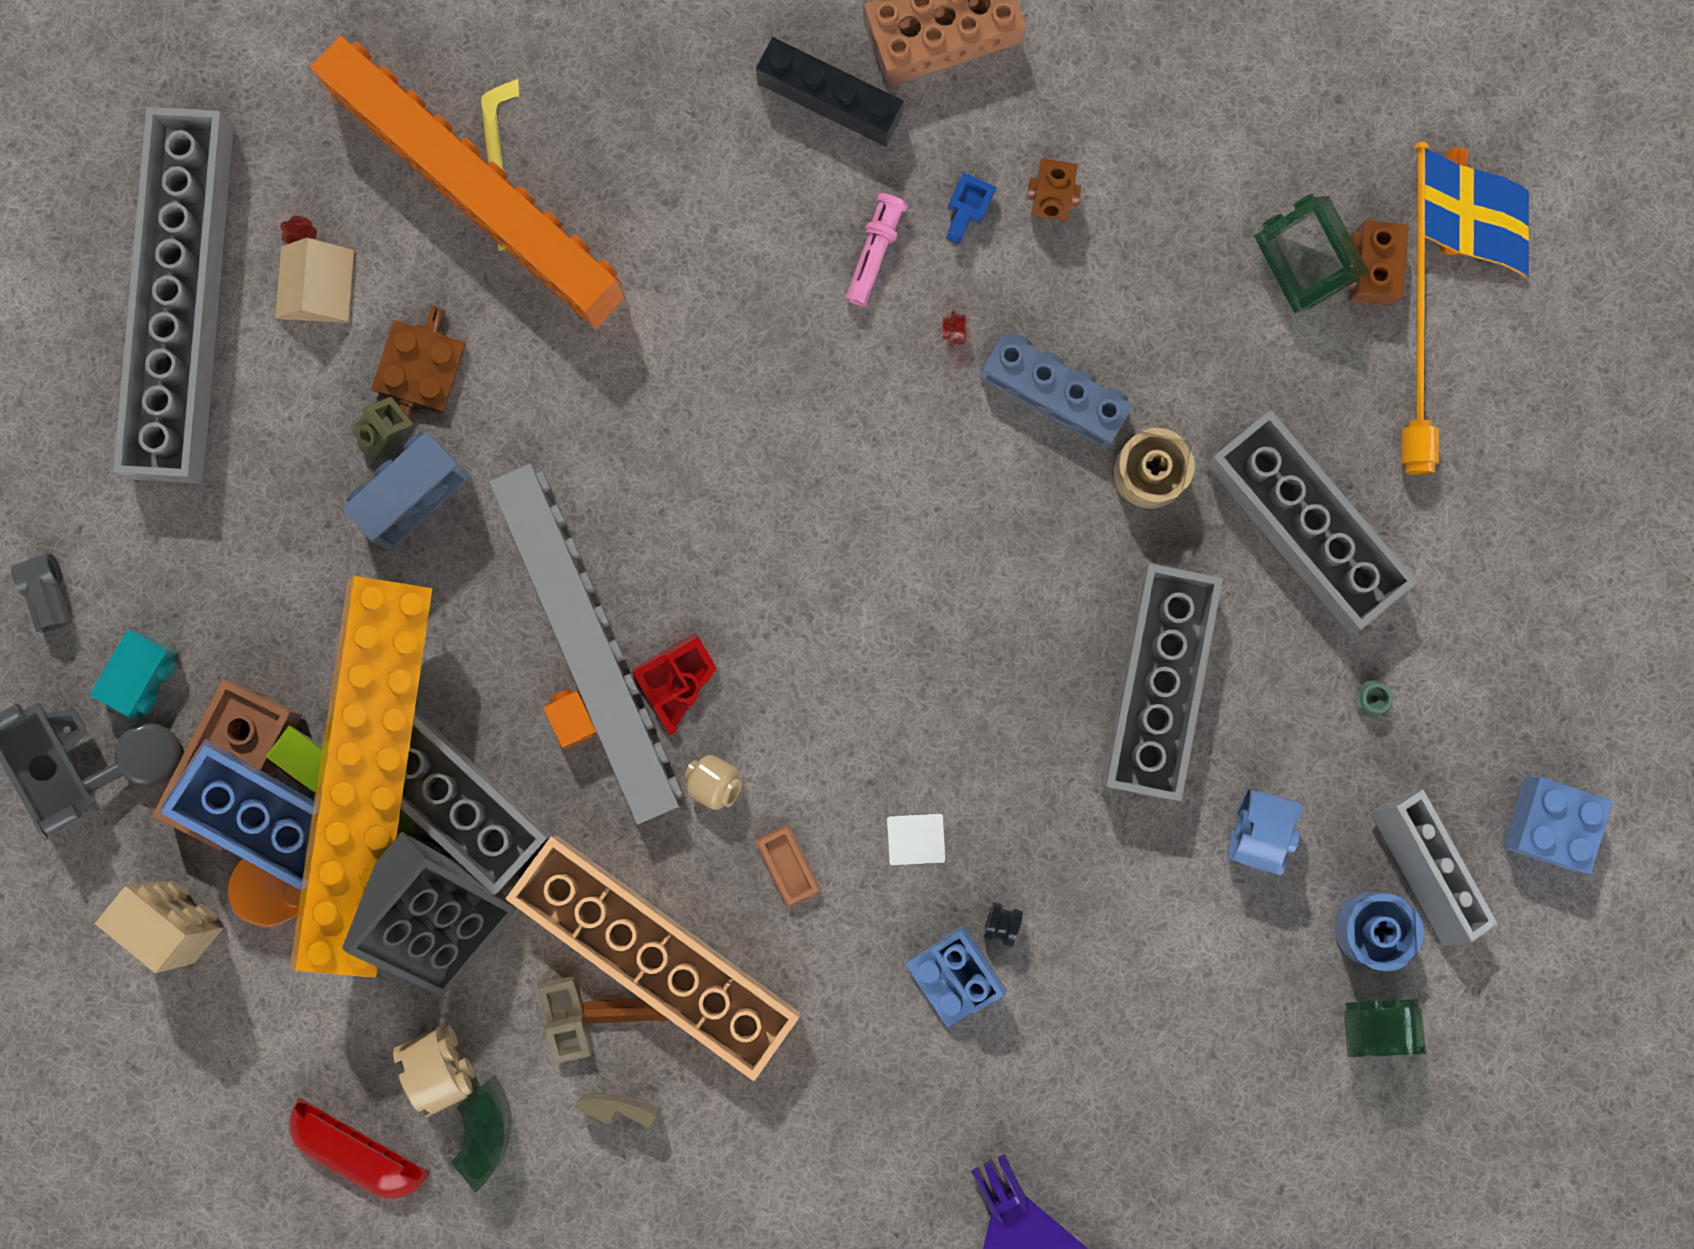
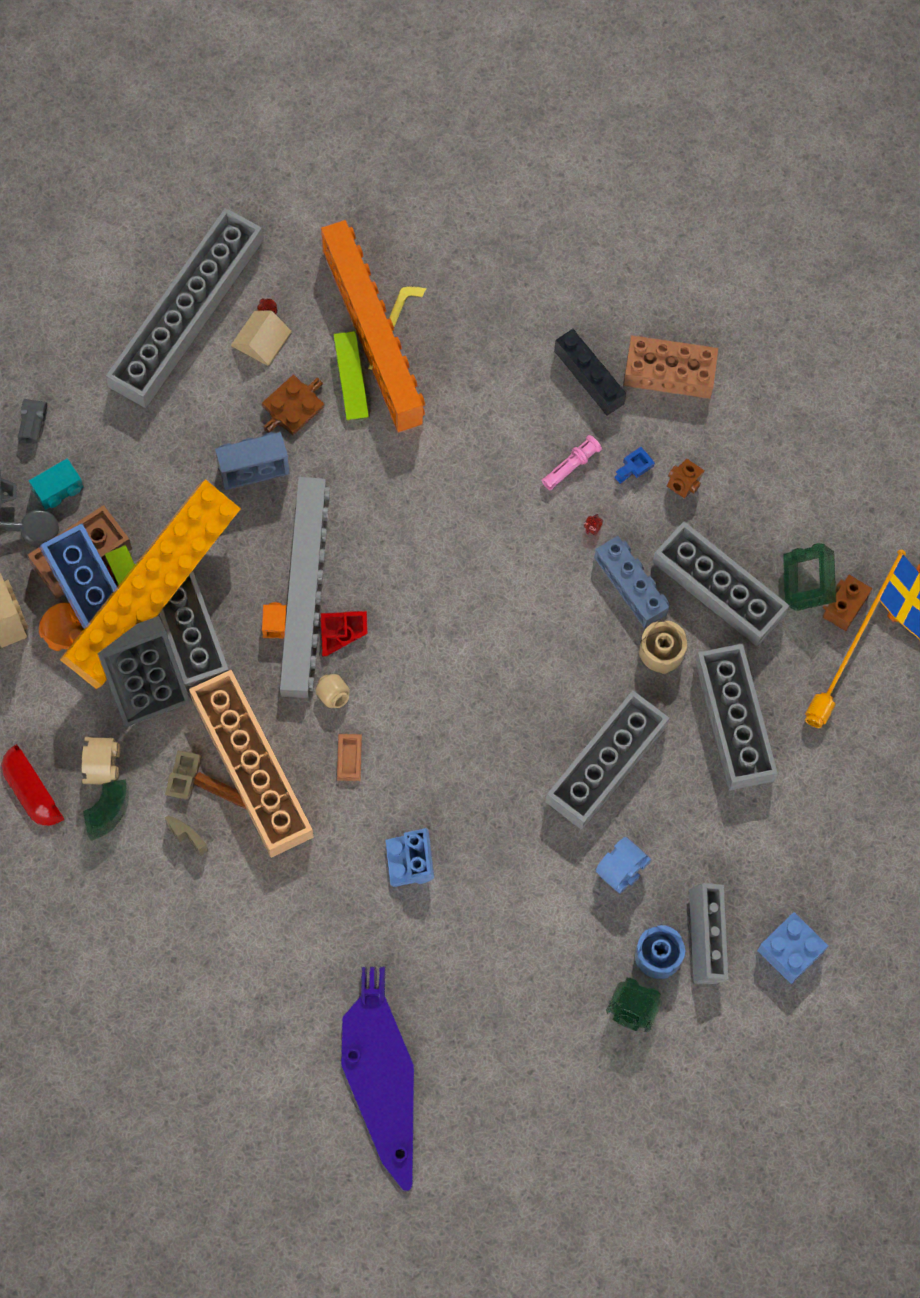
camera: 25 degrees right, 15 degrees down
(374, 435) = (251, 423): olive brick -> none
(480, 277) = (350, 375): none -> lime slope
(916, 839) = (427, 780): white sticker -> none
(1002, 924) = (450, 845): black wheel -> none
(1188, 329) = (720, 584): none -> light grey brick
(1383, 695) = (724, 825): sand green plate -> none

